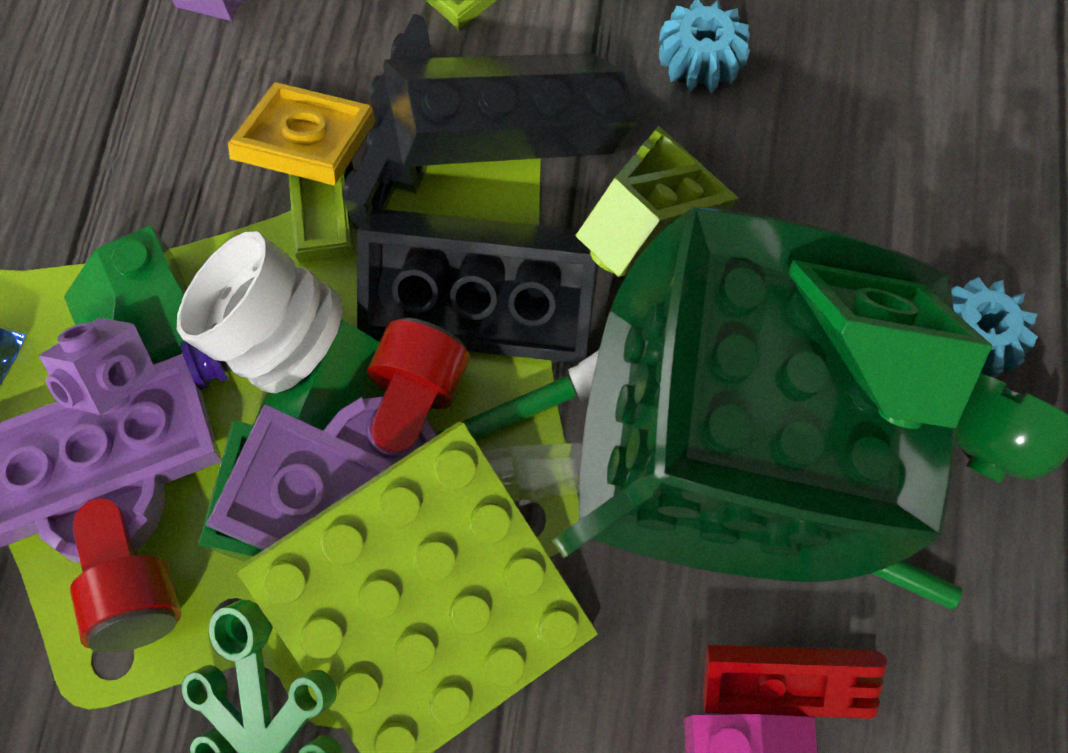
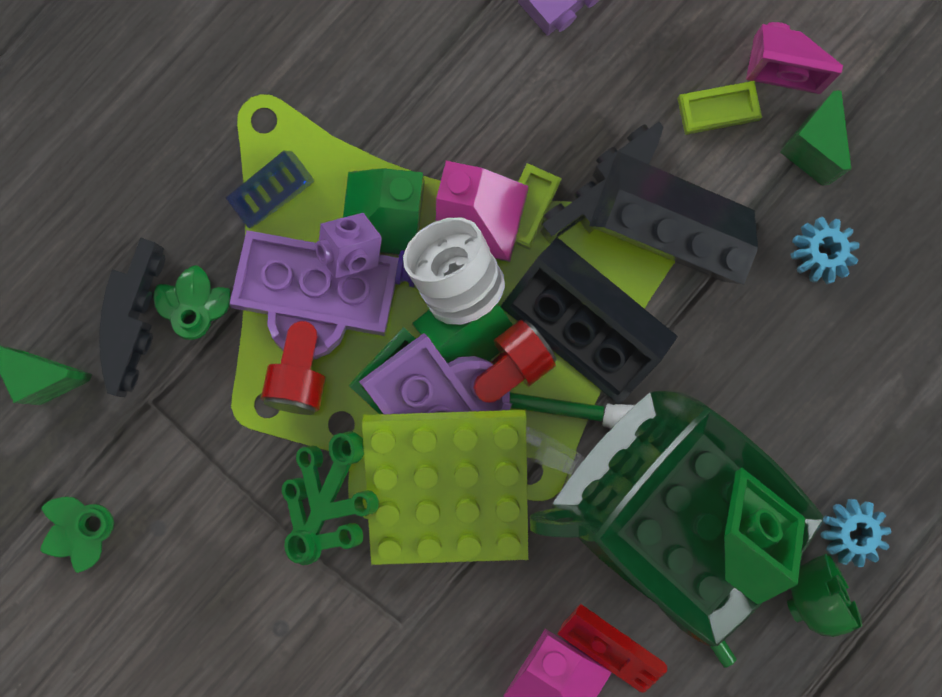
camera: 30 degrees right, 15 degrees up
(246, 202) = (485, 199): none -> dark pink slope
(302, 133) = (545, 155): yellow tile -> none
(647, 198) = (716, 344): lime wedge -> none

